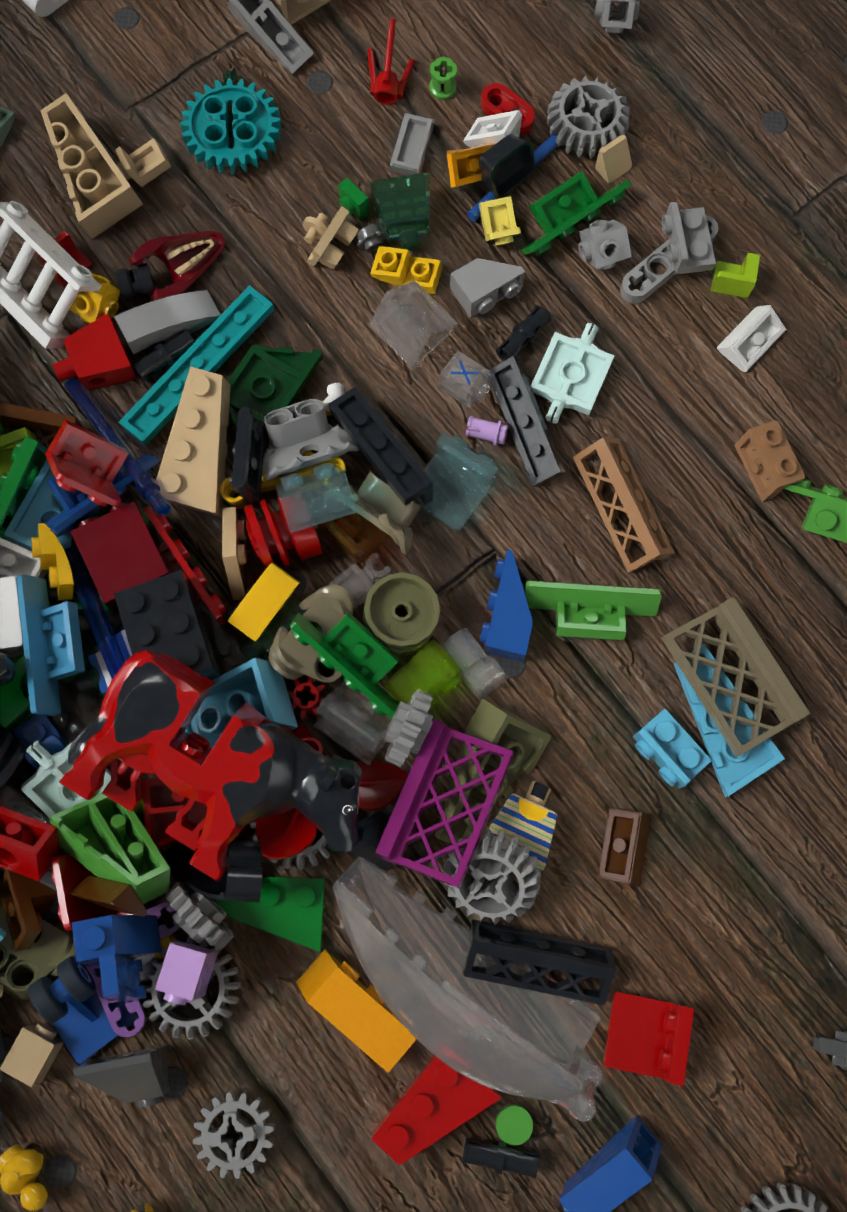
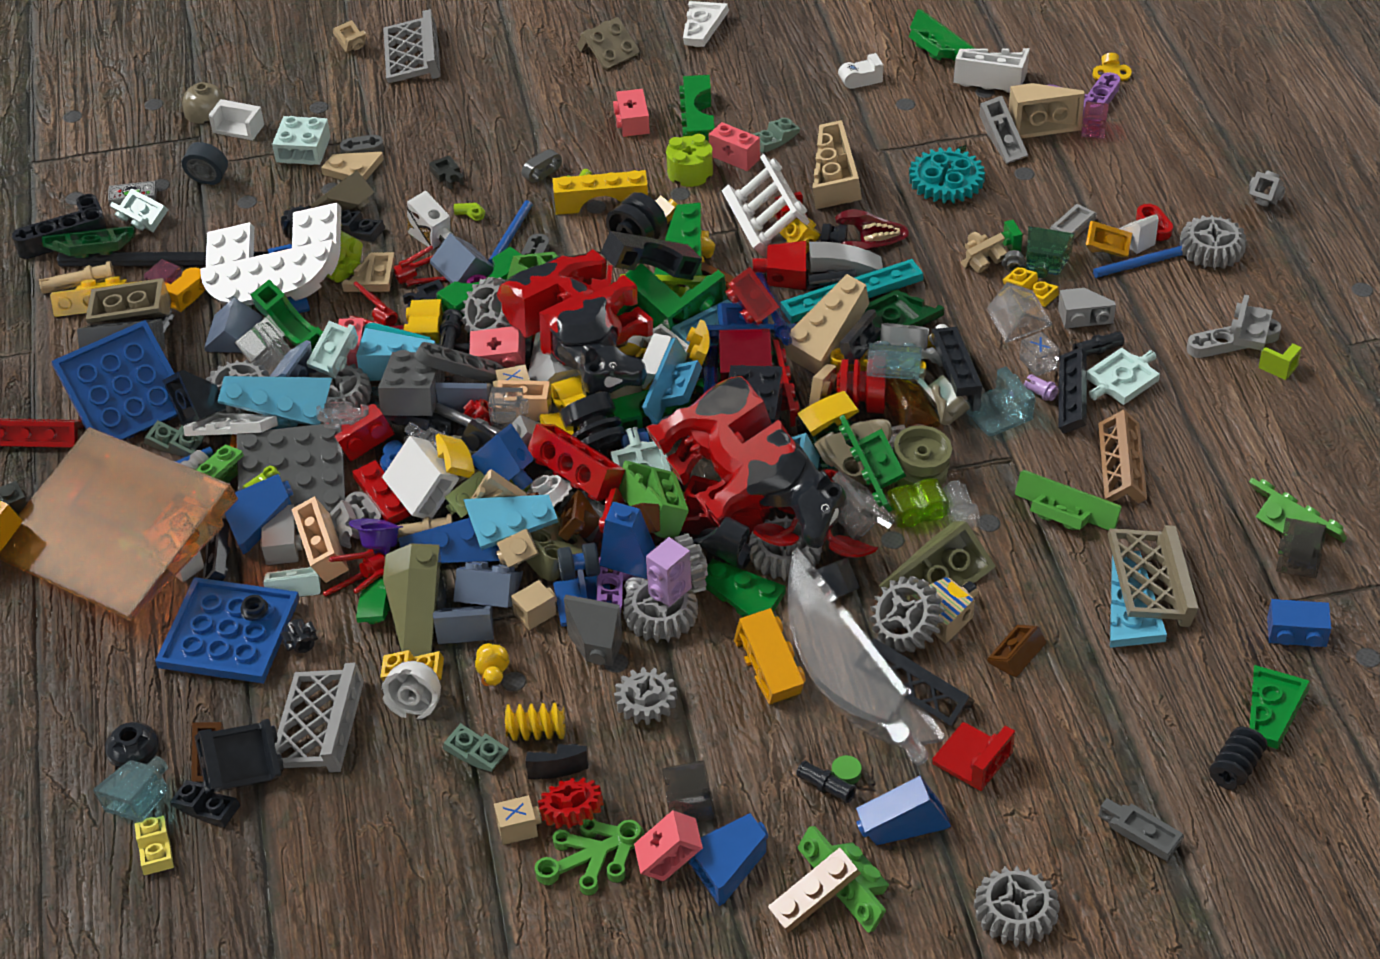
camera: 30 degrees right, 30 degrees down
(121, 978) = (624, 558): blue plate -> none
(143, 163) = (874, 178): tan bracket -> none
(386, 86) = (1071, 182): red plant -> none
(408, 728) = (891, 504): light grey gear -> none
(416, 792) = (886, 541): magenta fence -> none
(430, 1109) = (792, 729): red wedge -> none
(446, 79) = (1114, 192): bright green bush -> none
(499, 220) = (1113, 278): light yellow bracket -> none
(507, 165) = (1134, 245): black piece -> none
(511, 618) = (997, 493): blue slope -> none
(566, 206) = (1169, 284): green bracket -> none
(604, 244) = (1194, 310): light grey brick -> none
(614, 159) = (1220, 270): tan slope -> none
(671, 749) = (1082, 605): medium azure bracket -> none
(752, 337) = (1276, 400): white slope -> none
(769, 459) = (1247, 462): medium nougat bracket -> none

